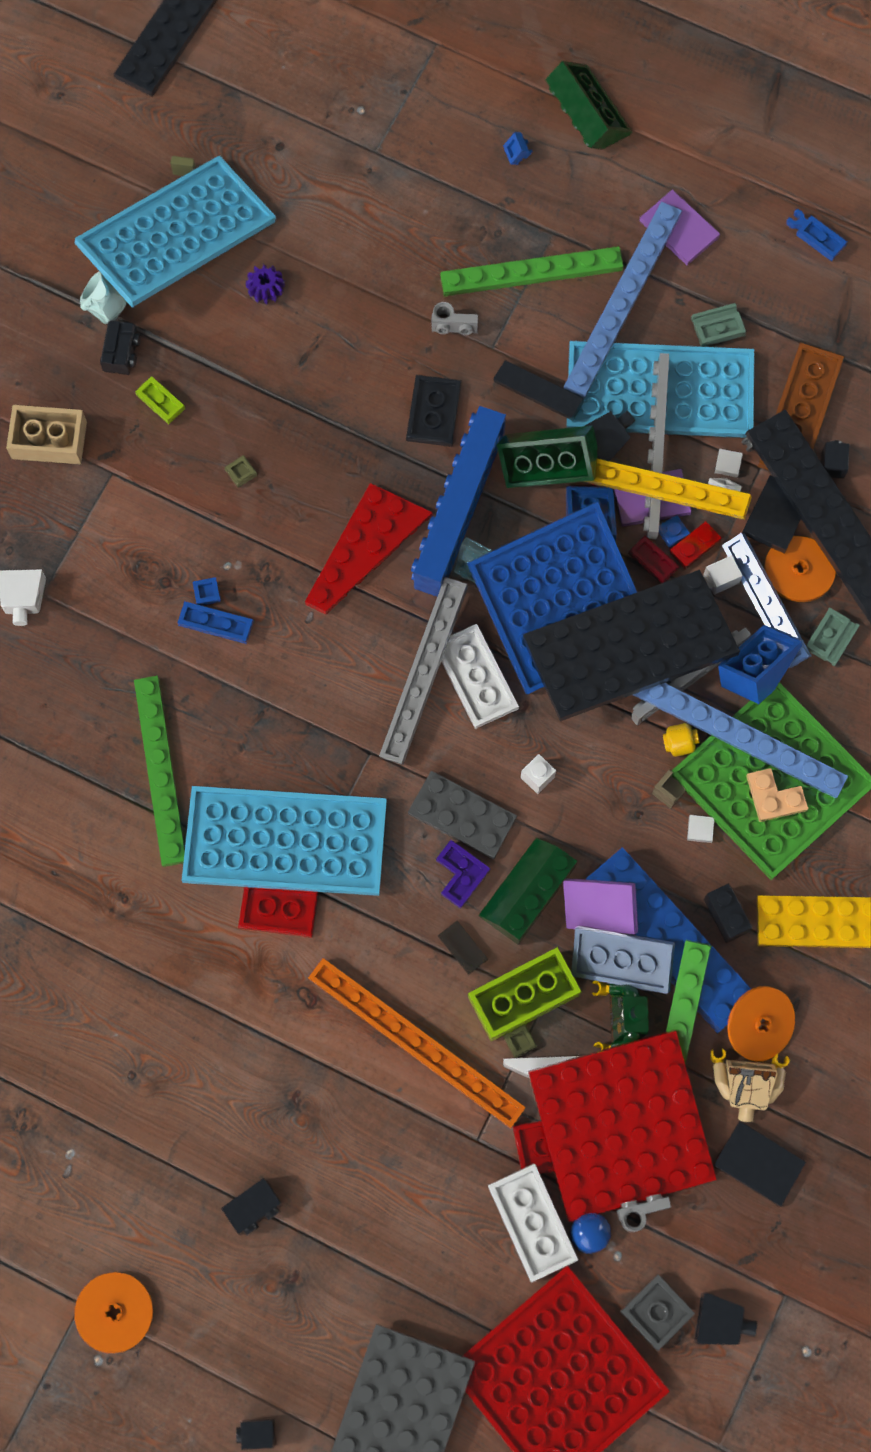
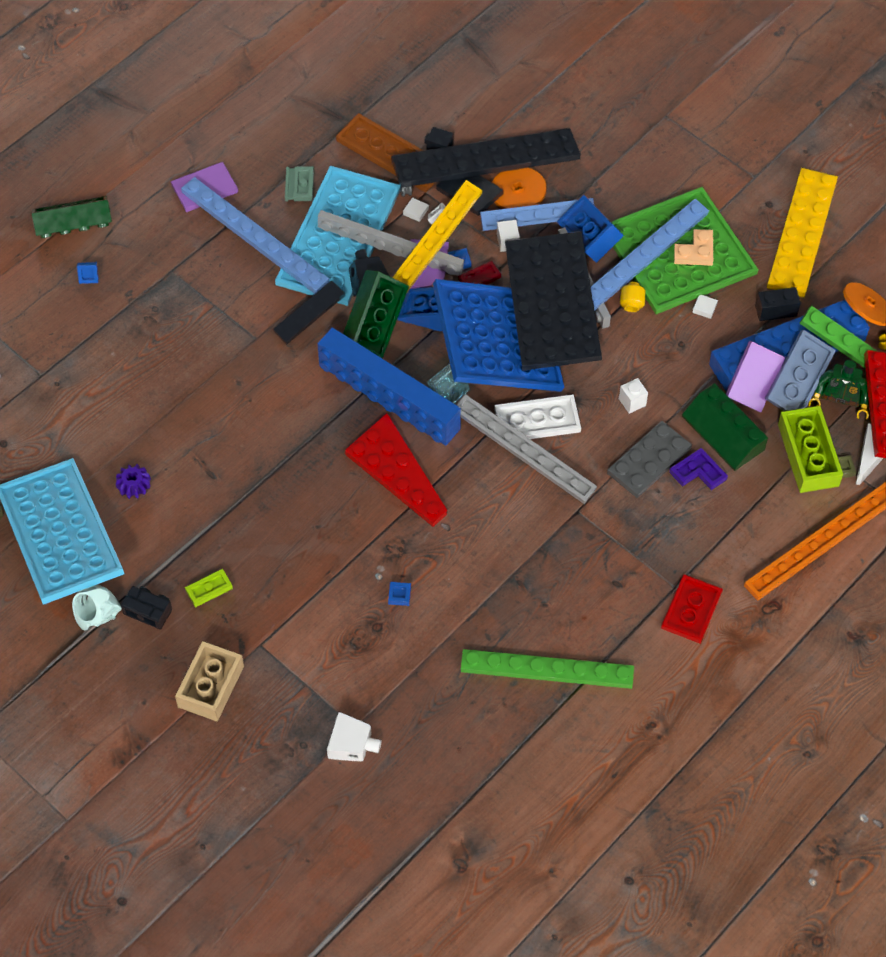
camera: 75 degrees left, 15 degrees down
(215, 622) = (429, 593): blue plate -> none
(240, 471) = (297, 544): olive tile -> none
(284, 840) = (637, 588): medium azure plate -> none
(433, 410) = (296, 391): black tile -> none
(459, 323) = (224, 355): light grey plate -> none
(462, 947) = (758, 486): clear smoke tile -> none
(531, 271) = (200, 294): bright green plate -> none
(668, 790) = (669, 316): dark tan panel -> none
(695, 545) = (476, 248): red plate -> none
(817, 235) = (249, 103): blue plate -> none
(832, 636) = (579, 183): sand green plate -> none

